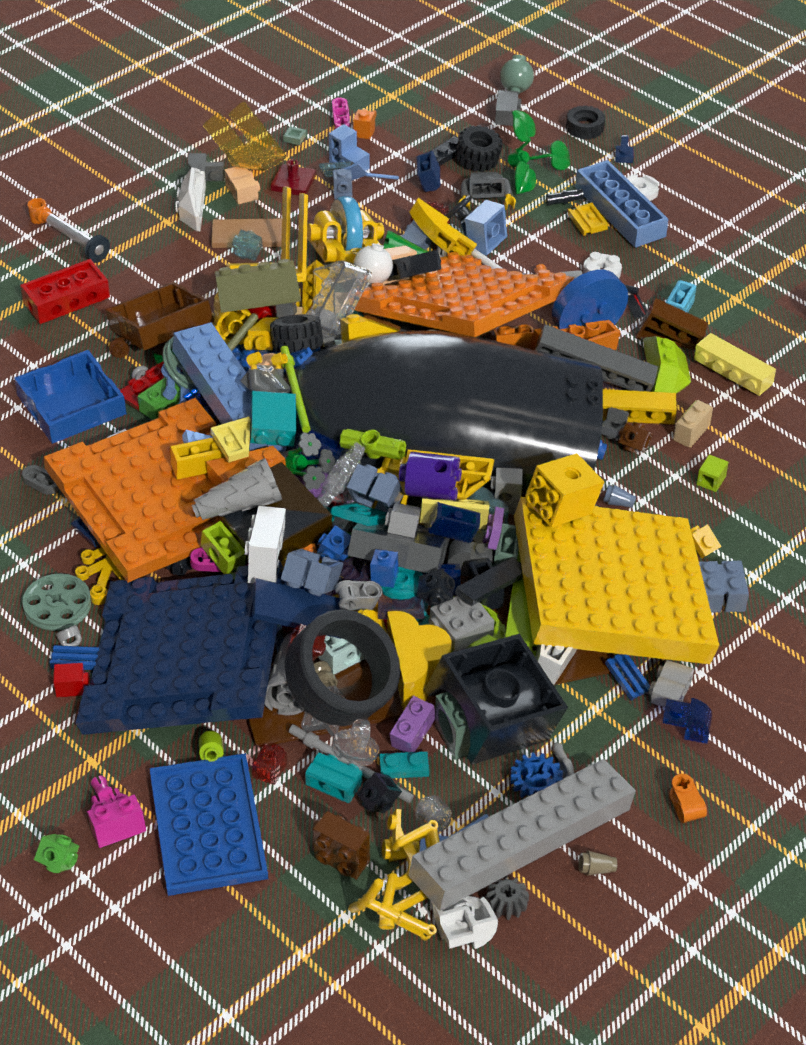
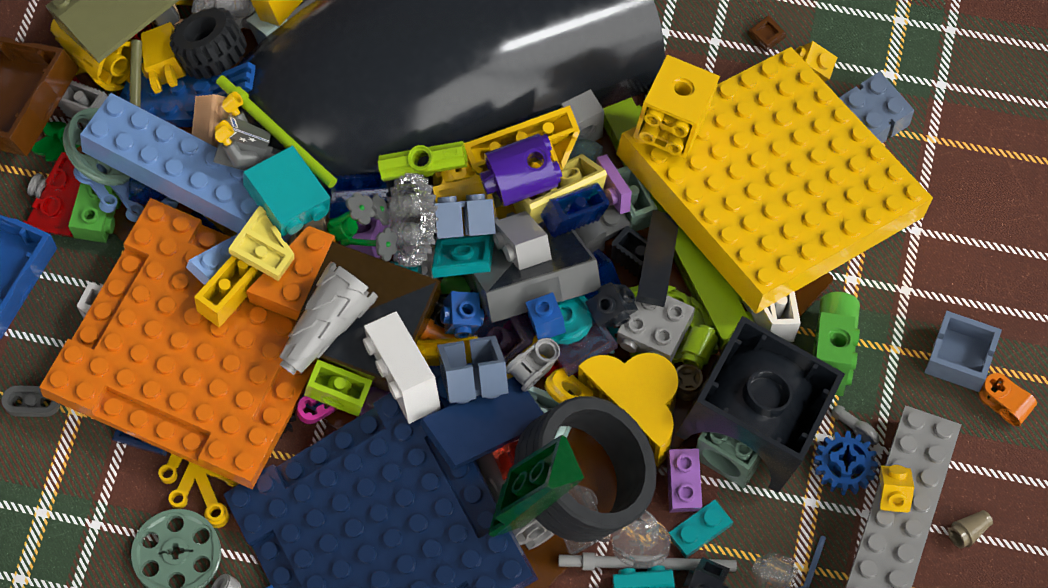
camera: 30 degrees left, 20 degrees up
(287, 643) = (535, 485): none -> dark green slope
(548, 790) = (896, 488): none -> yellow bracket
(584, 696) = (838, 334): none -> bright green brick
(619, 497) = (692, 51): sand blue cone -> none
(631, 673) = (862, 275): blue tile -> none
(672, 683) = (903, 266): light grey brick -> none
(678, 751) = (963, 351): none -> sand blue piece
(682, 510) = (767, 33): none -> reddish brown tile
(693, 716) = (955, 297): clear blue brick -> none

